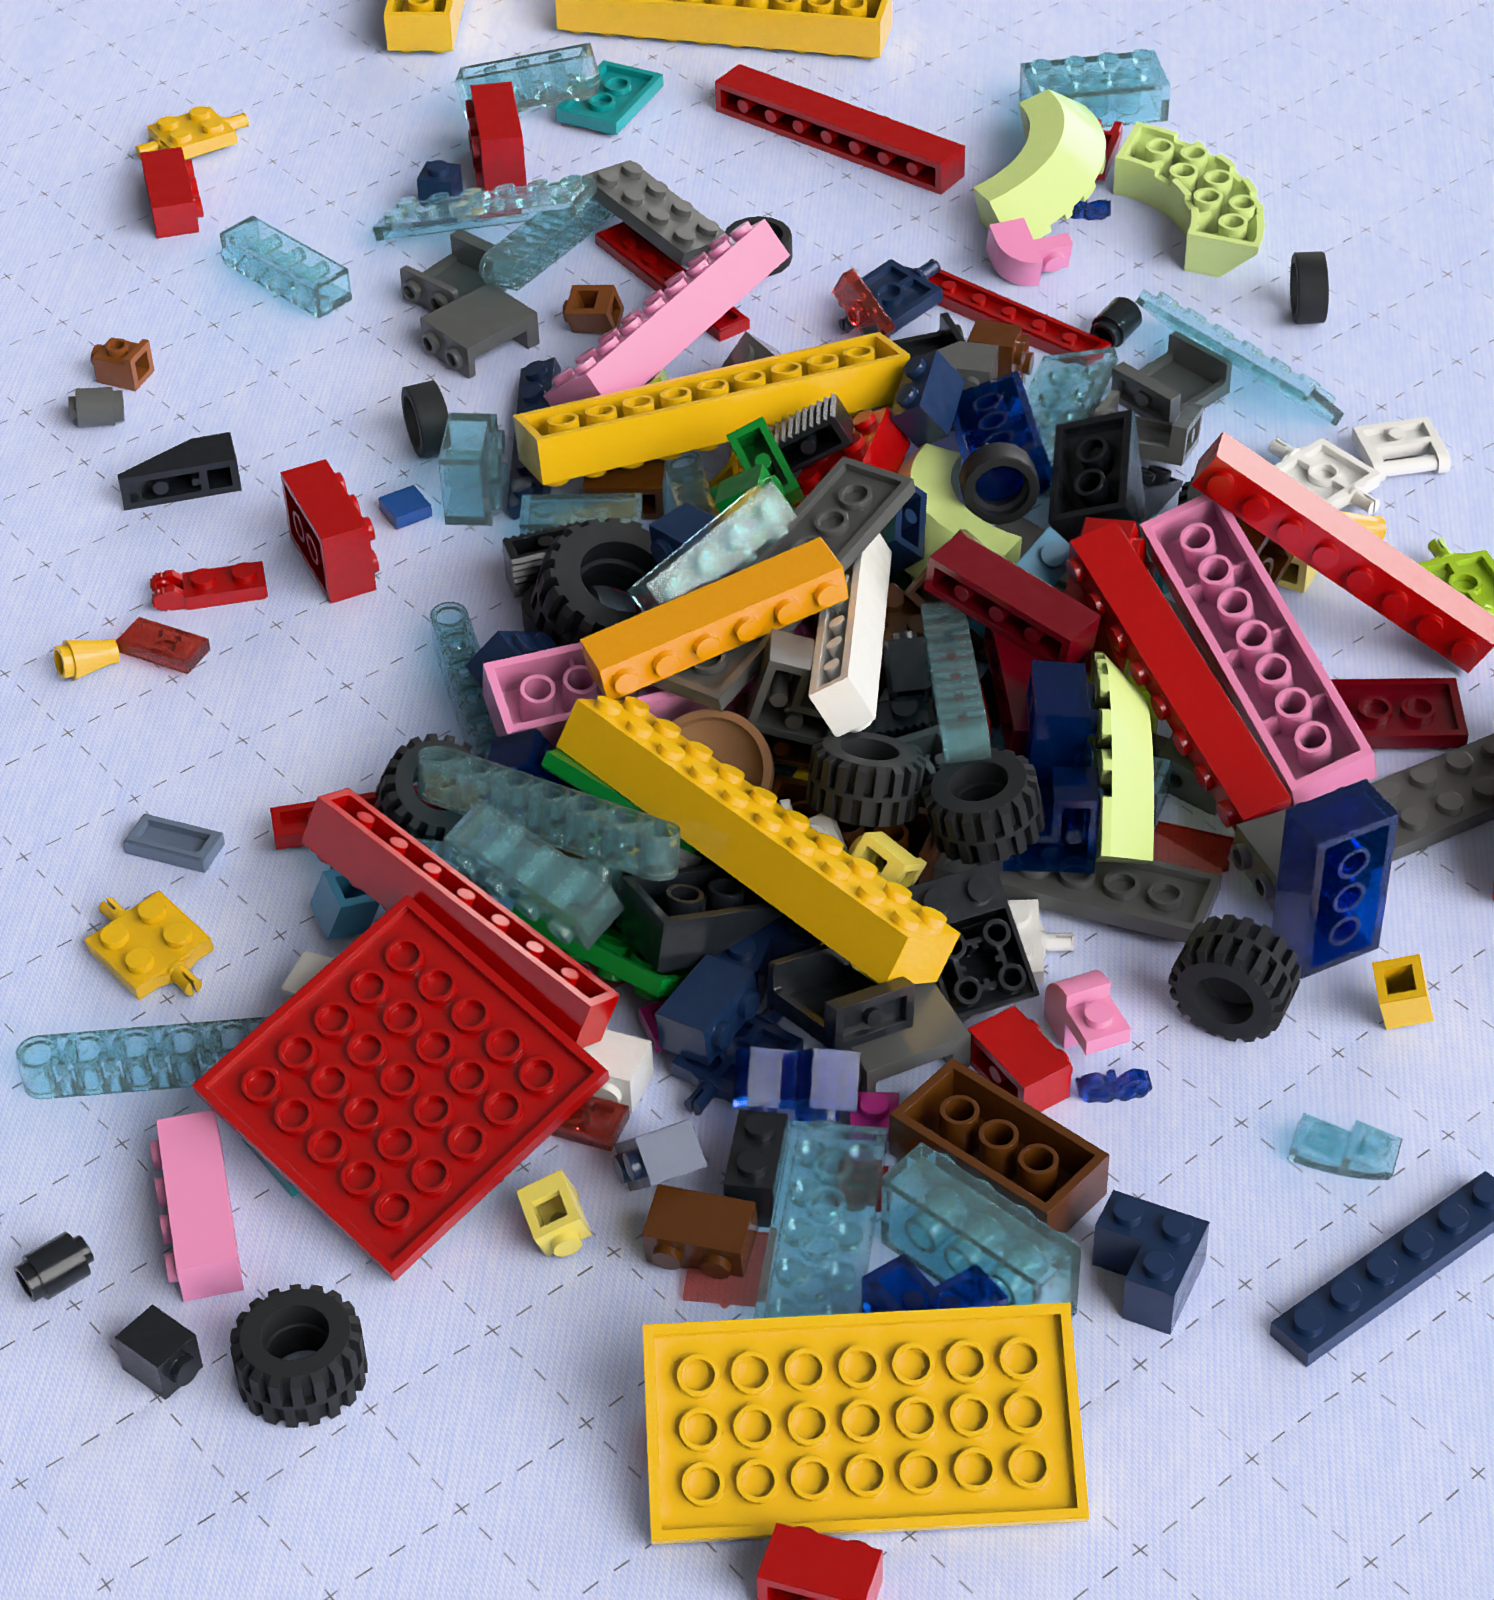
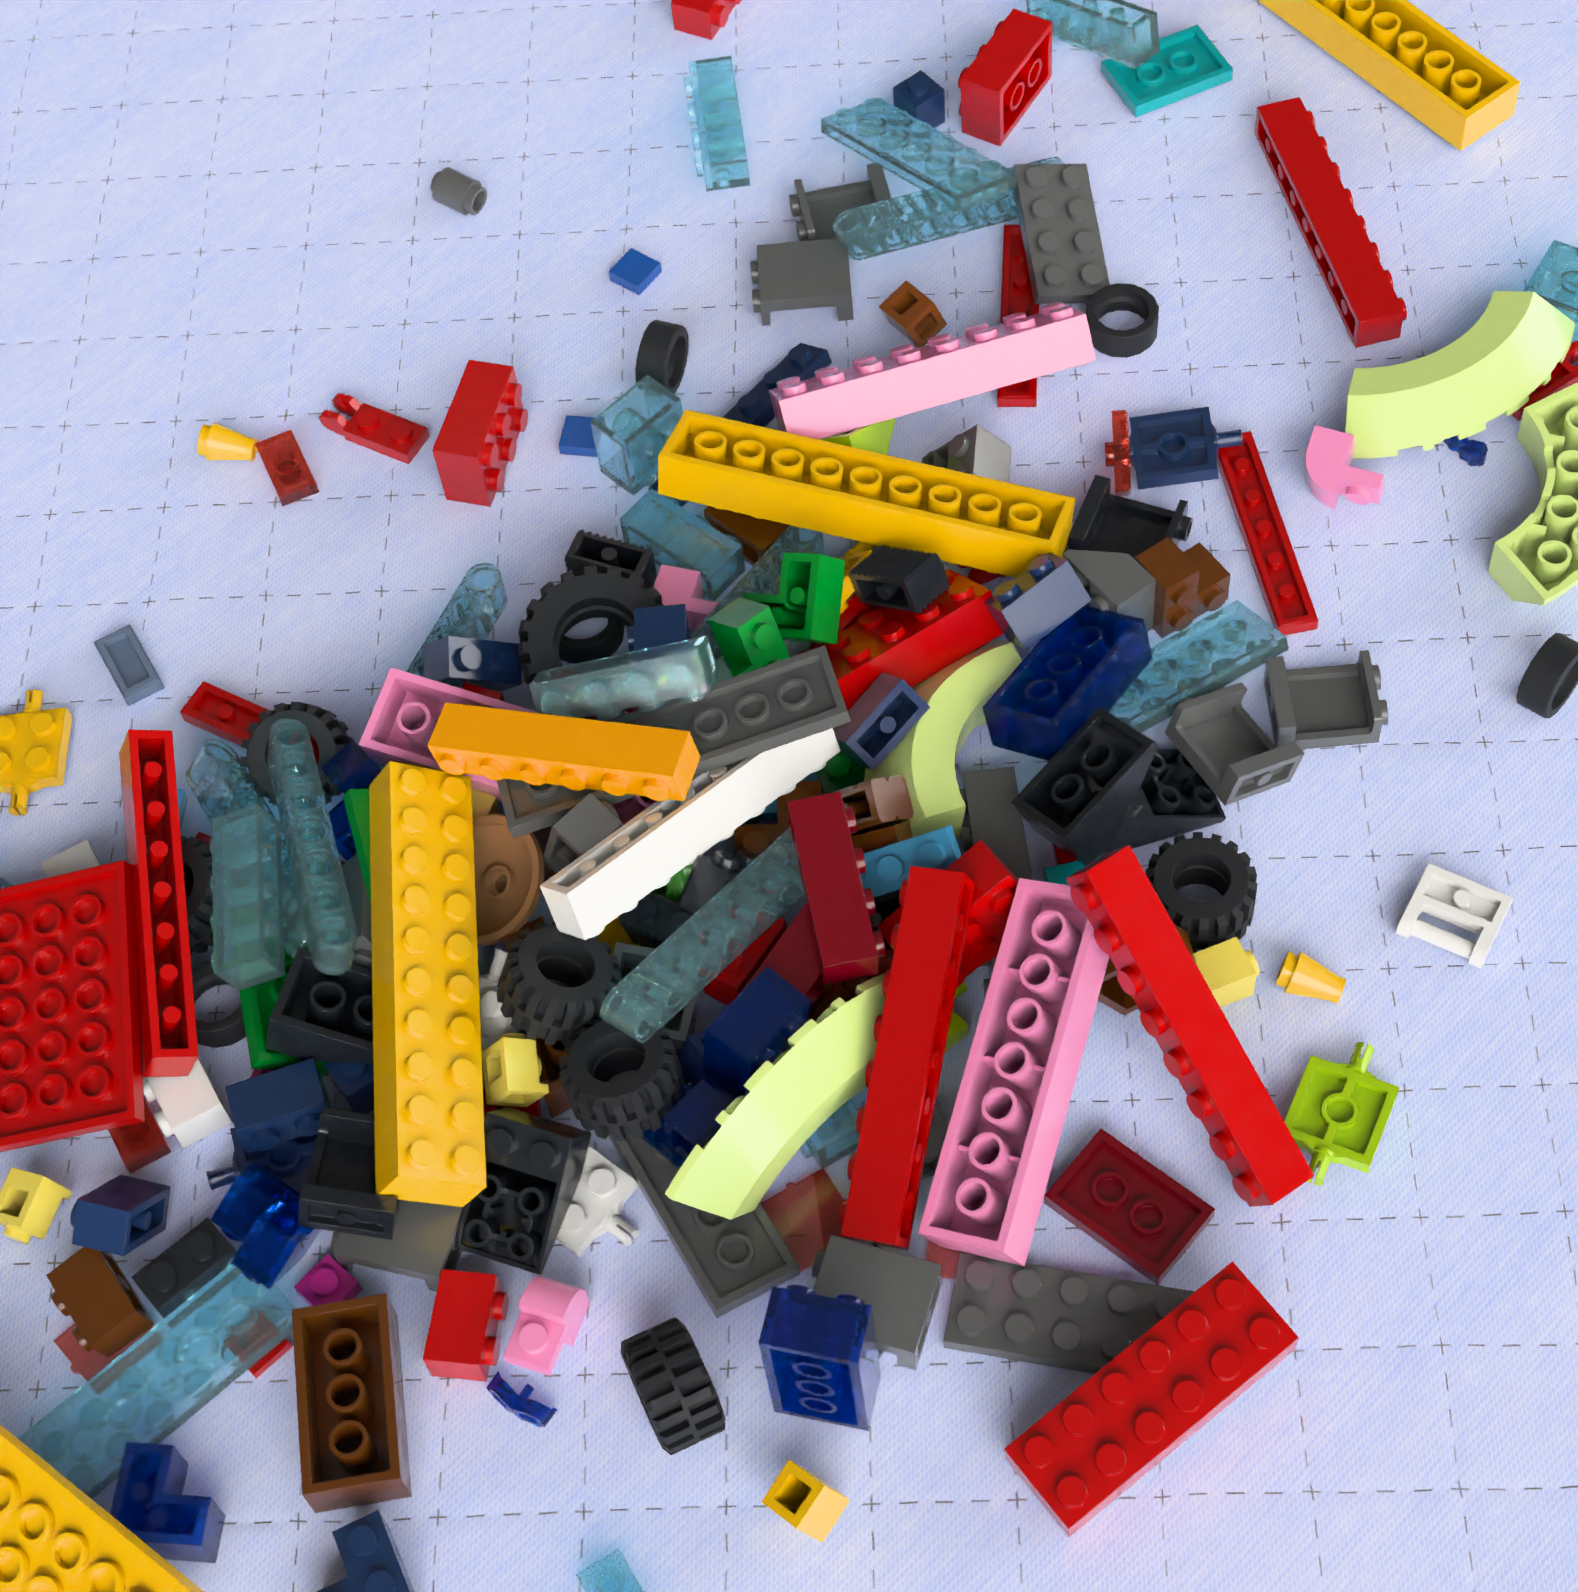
camera: 45 degrees right, 15 degrees up
(123, 363) = (513, 147): dark orange brick -> none
(185, 472) = (455, 300): black slope -> none
(320, 390) = (635, 271): none -> blue tile
(955, 1220) = (247, 1478): clear light blue brick -> none
(994, 456) = (1011, 721): black tyre -> none
(1117, 321) = (1344, 600): black brick -> none
(1243, 355) = (1399, 719): clear light blue plate -> none
(1329, 473) = (1346, 901): white plate -> none

